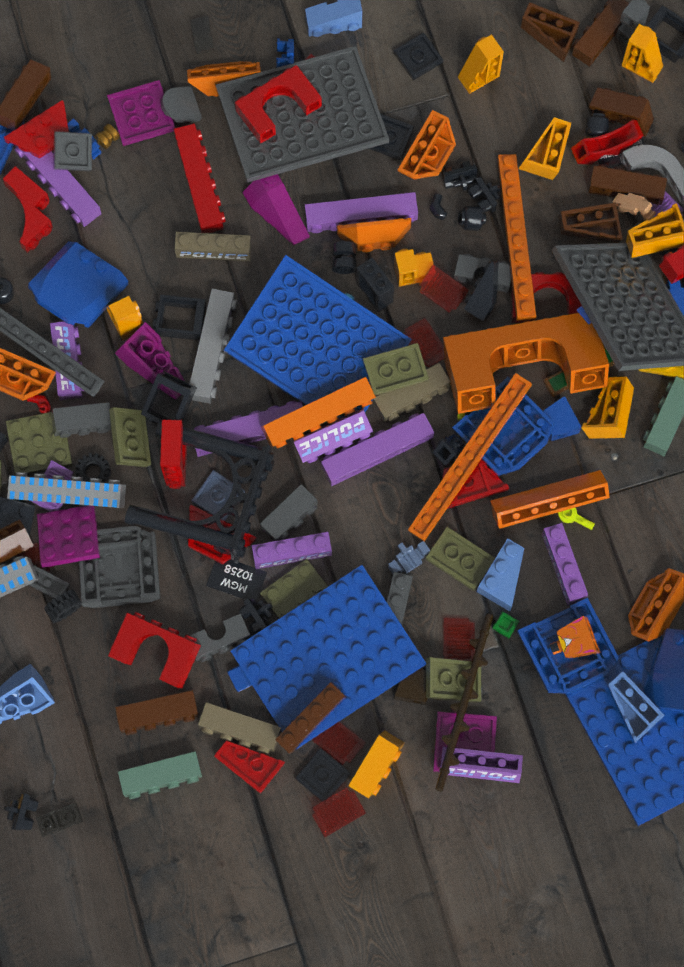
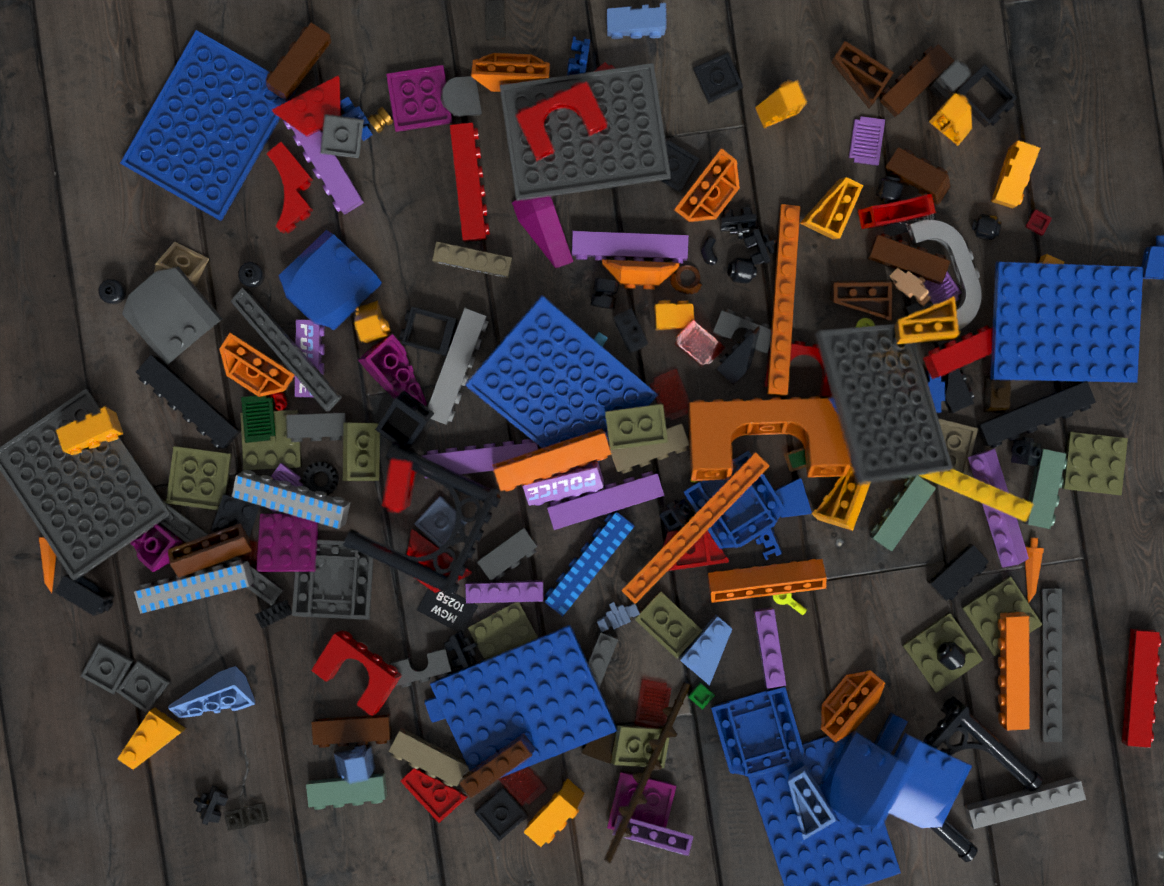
camera: 15 degrees right, 15 degrees up
(24, 422) = (258, 418): none -> dark green window
(163, 741) = (355, 764): none -> medium blue wedge
(337, 811) = (509, 850): clear red window -> none
(371, 511) = (589, 563): none -> blue brick
(411, 239) = (676, 281): none -> reddish brown piece
(547, 461) = (770, 542): none -> blue piece
(567, 90) = (867, 140): none -> medium lavender window
(576, 639) = (766, 729): orange torso -> none

